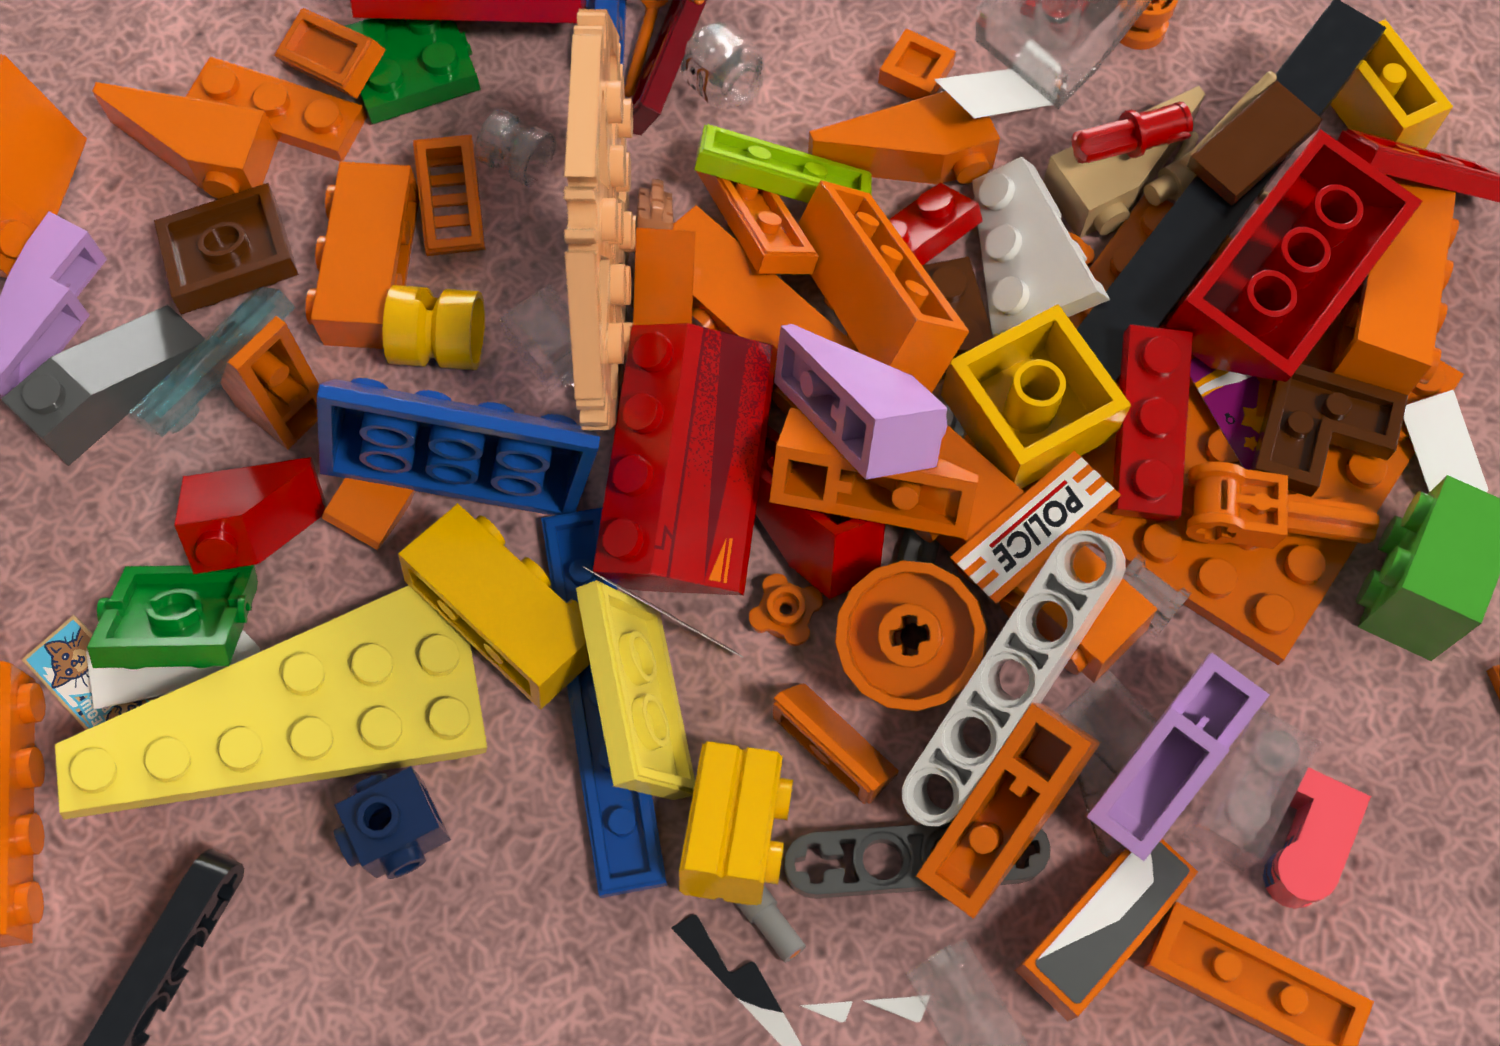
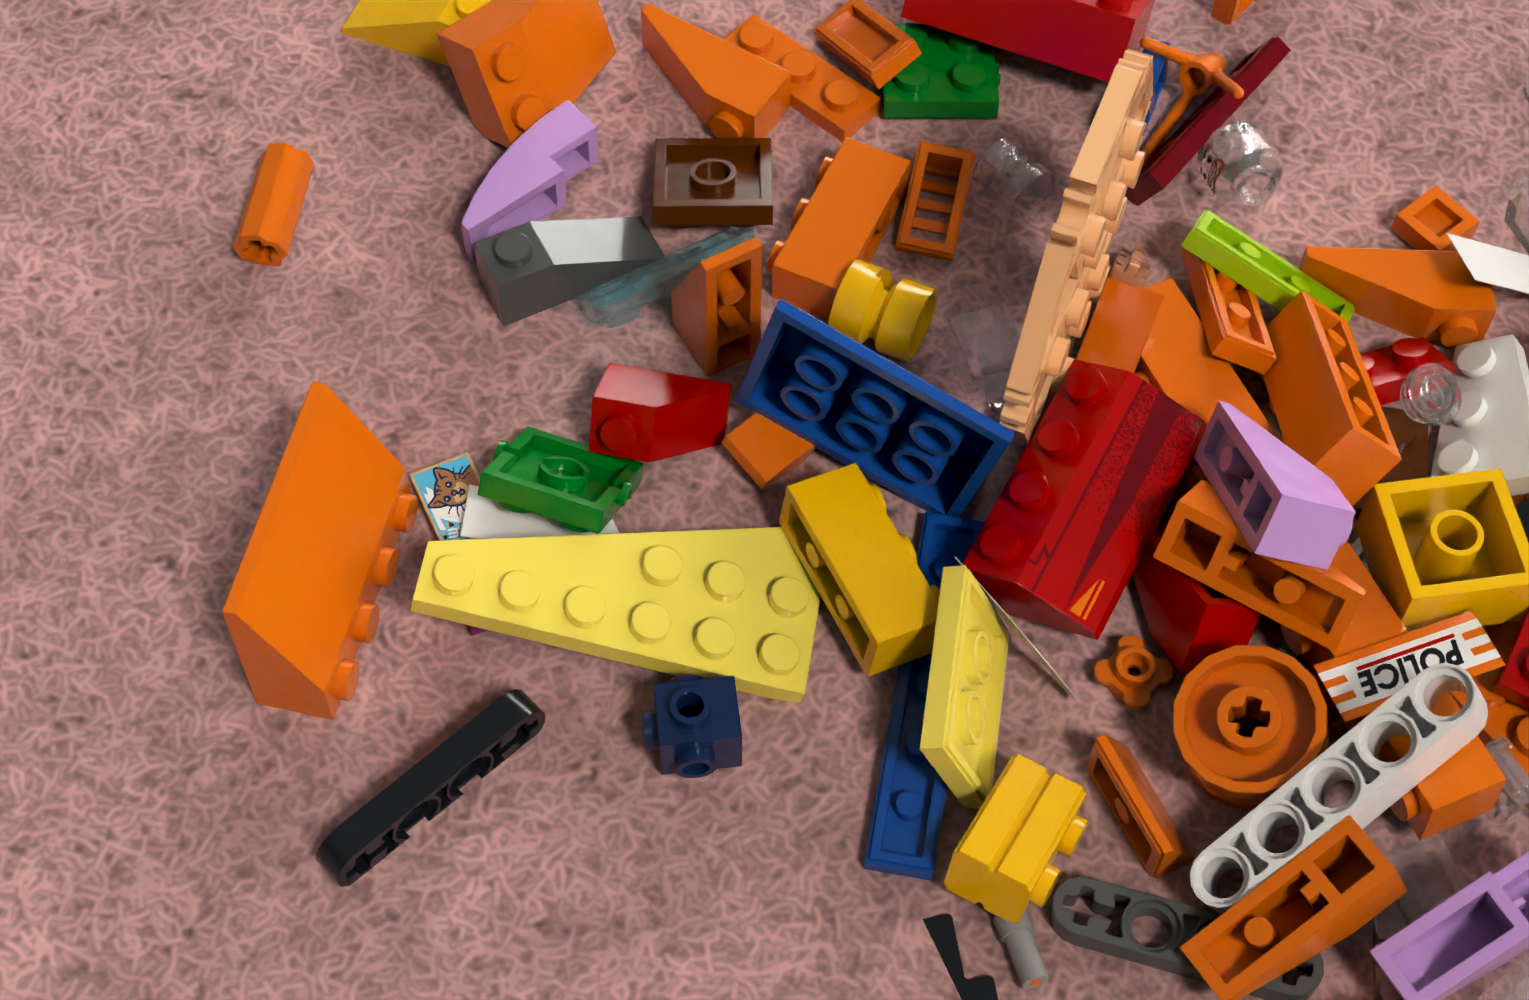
camera: 20 degrees right, 10 degrees down
(968, 242) = (1431, 395): none -> clear plate

